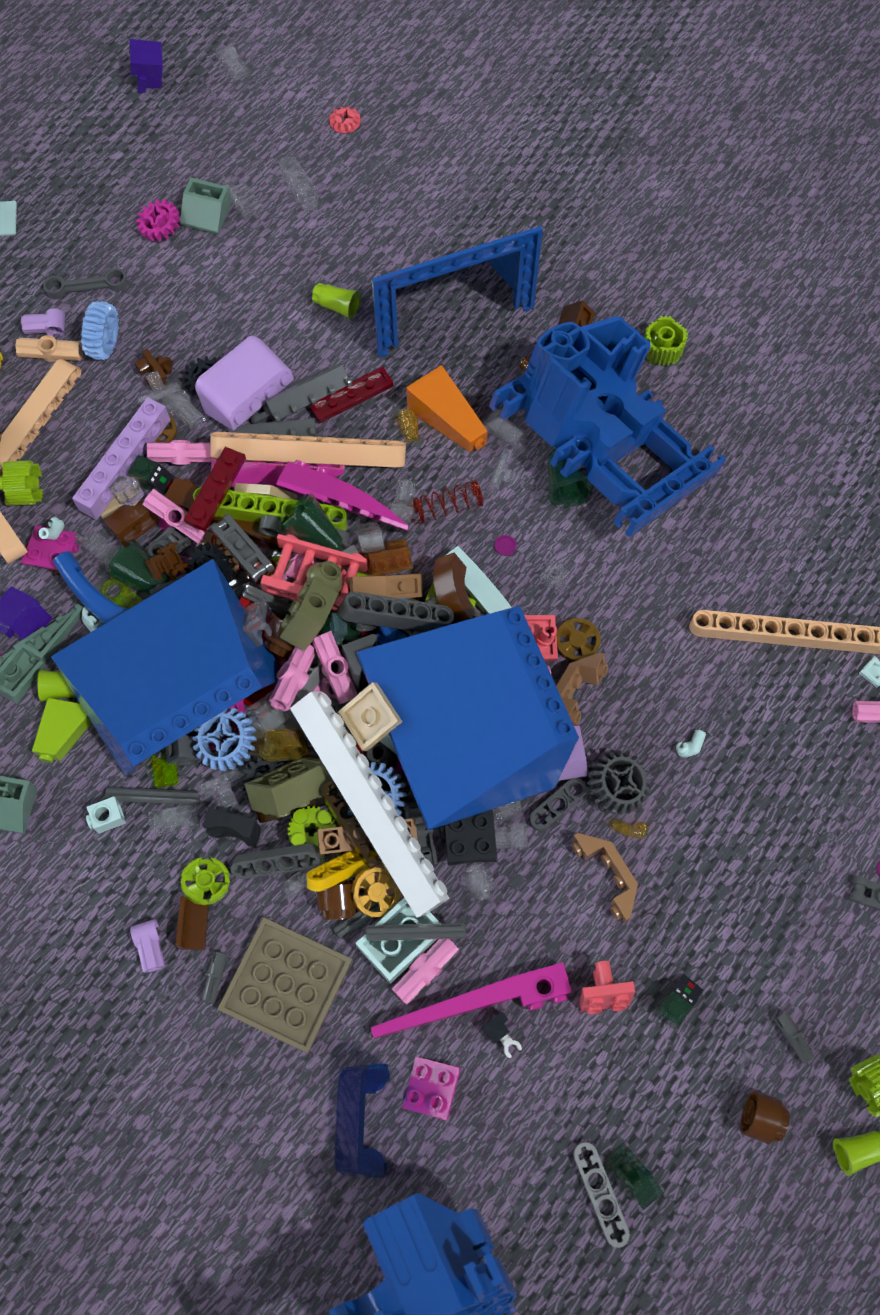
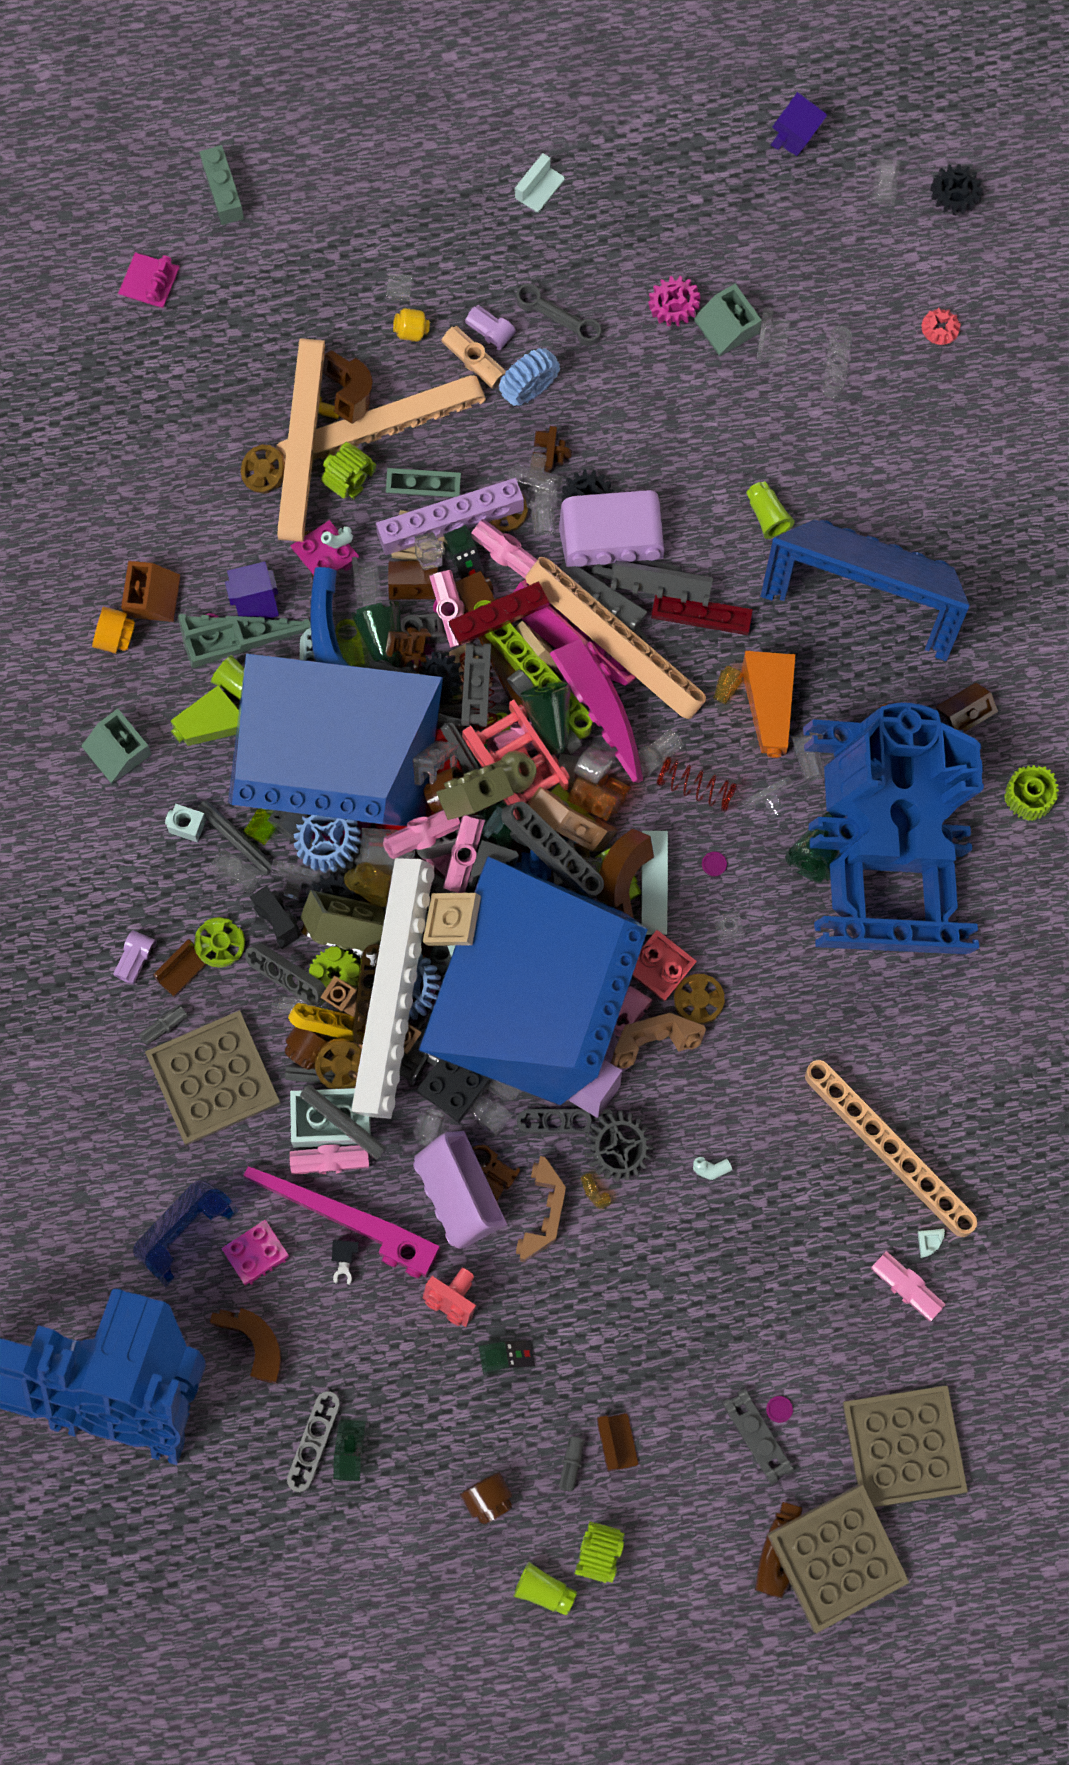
camera: 40 degrees right, 5 degrees up
(82, 451) = (423, 483): none -> sand green brick
(281, 36) = (955, 198): none -> black gear
(501, 1151) = (268, 1354): none -> reddish brown arch
(539, 910) = (458, 1189): none -> lavender windscreen
(554, 877) = (498, 1172): none -> reddish brown piece
(808, 993) = (617, 1442): none -> reddish brown panel

